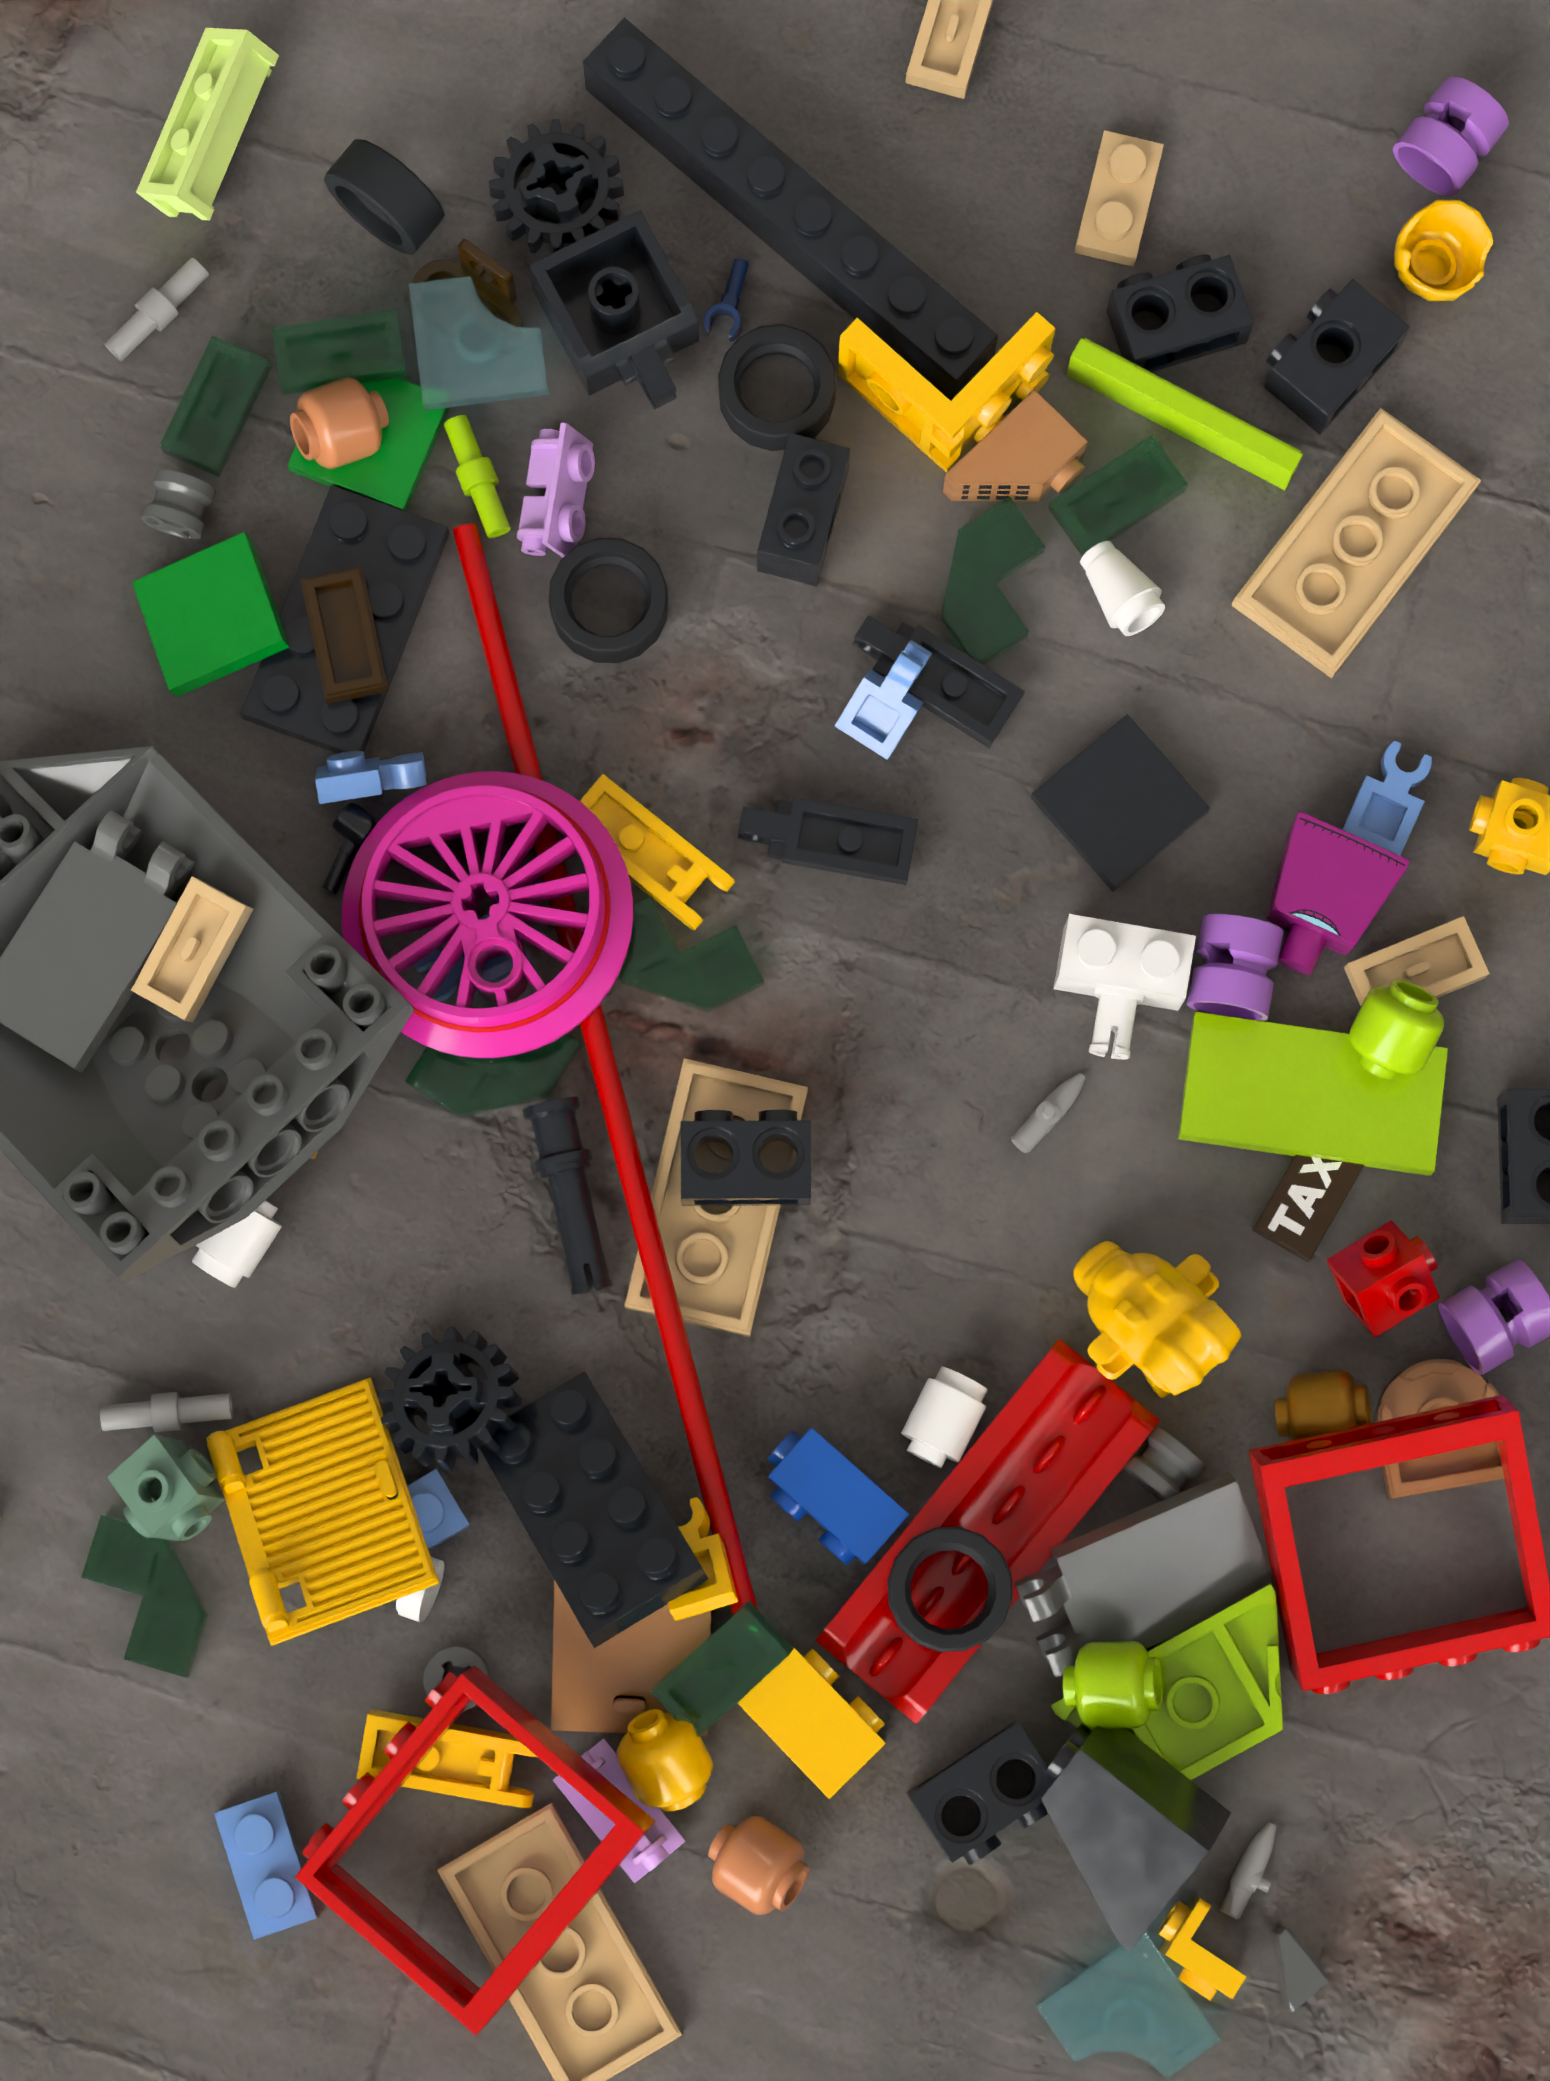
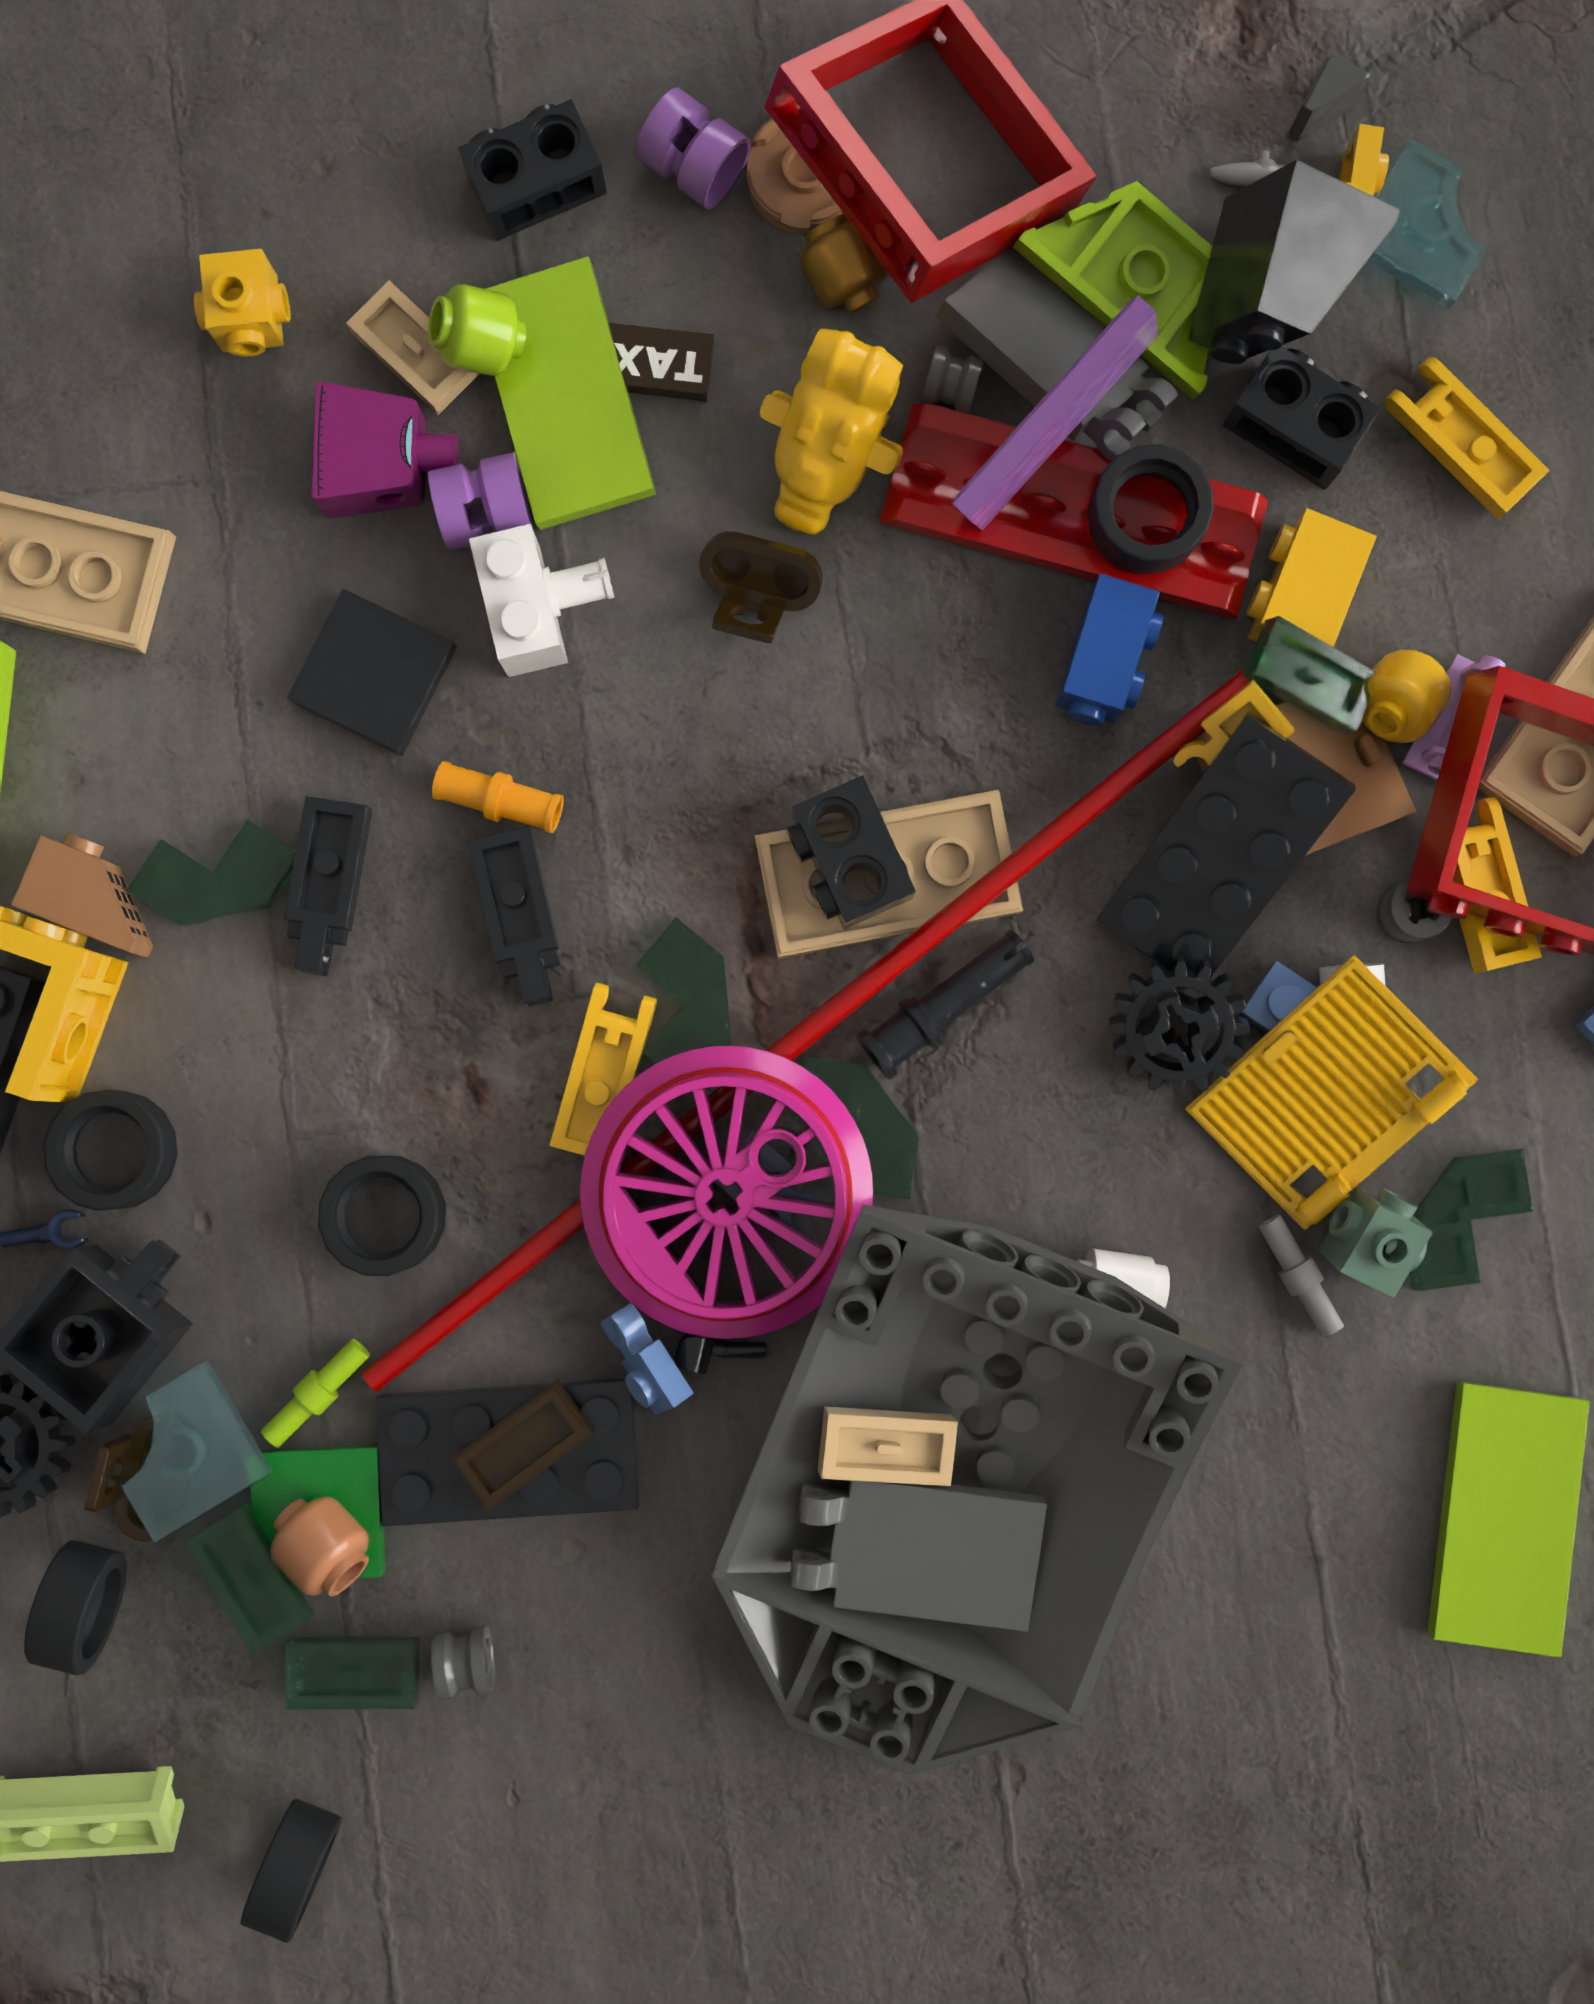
camera: 115 degrees left, 5 degrees up
(73, 285) = (290, 1870): none -> black tyre
(156, 309) = (281, 1774): light grey bar -> none
(210, 614) = (556, 1582): green tile -> none
(562, 465) = (271, 1315): lavender hinge -> none
(758, 1865) = (1452, 579): nougat head -> none
(803, 509) = (217, 1071): black brick -> none
(882, 706) = (376, 916): plate -> none
(888, 1951) = (1468, 439): none -> yellow hinge
(944, 1417) = (996, 587): white brick -> none
(949, 866) = (497, 796): none -> light orange pin
(1048, 1113) = (679, 615): light grey helmet -> none
(1051, 1195) = (759, 579): none -> dark brown bracket
(1063, 1517) = (1058, 413): none -> medium lavender tile
(1114, 1684) = (1182, 333): lime head -> none
(1118, 495) = (83, 792): clear green plate -> none
(1122, 589) = (170, 752): white cone -> none
(1385, 810) = (277, 434): medium blue plate -> none
(1385, 1277) = (702, 257): red brick -> none

